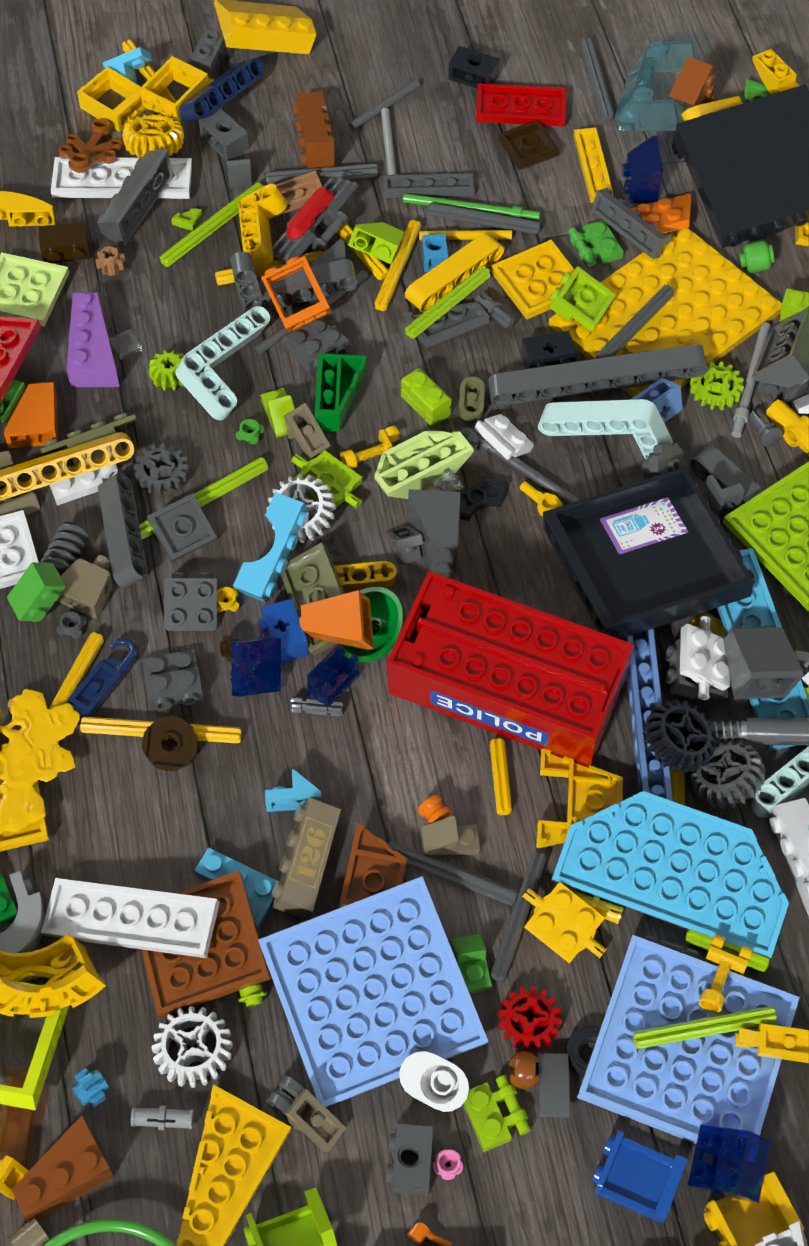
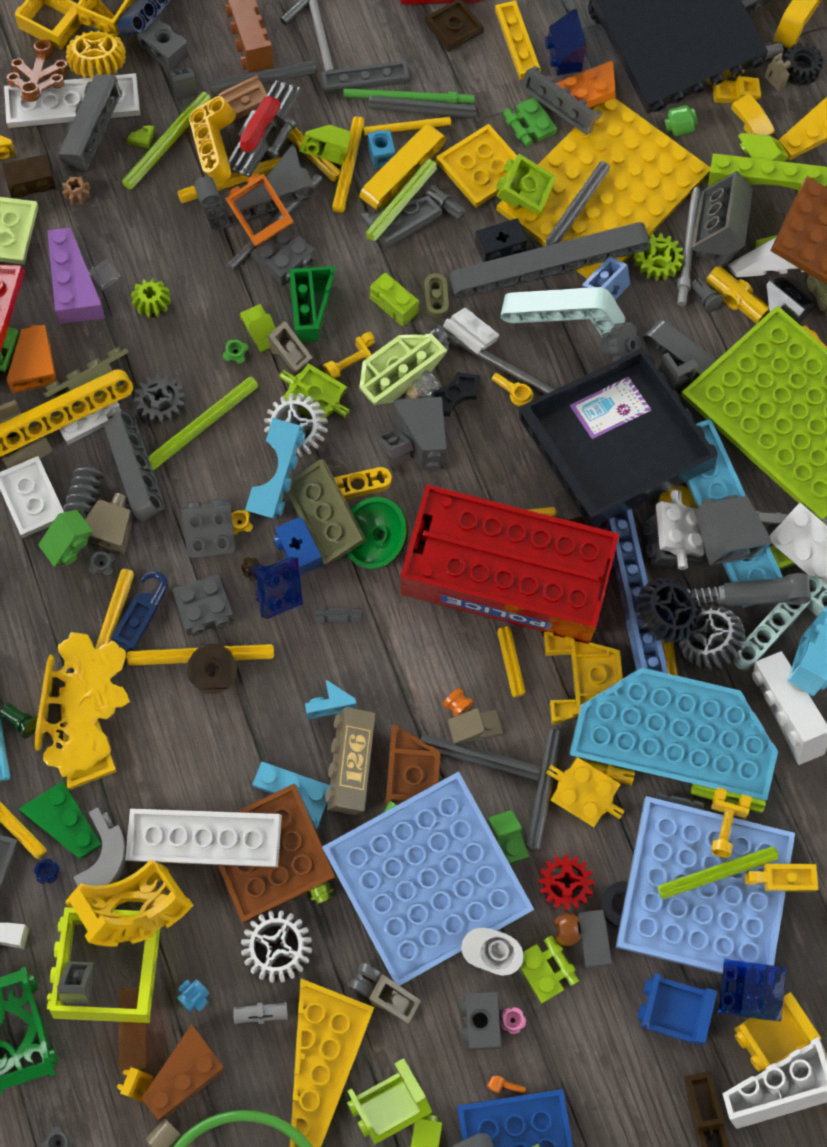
camera: 10 degrees left, 10 degrees up
(181, 528) = (188, 456): dark grey plate -> none
(234, 337) = (181, 292): light aqua beam -> none
(332, 676) = (348, 586): clear blue hinge -> none
(340, 620) = (349, 535): orange slope -> none

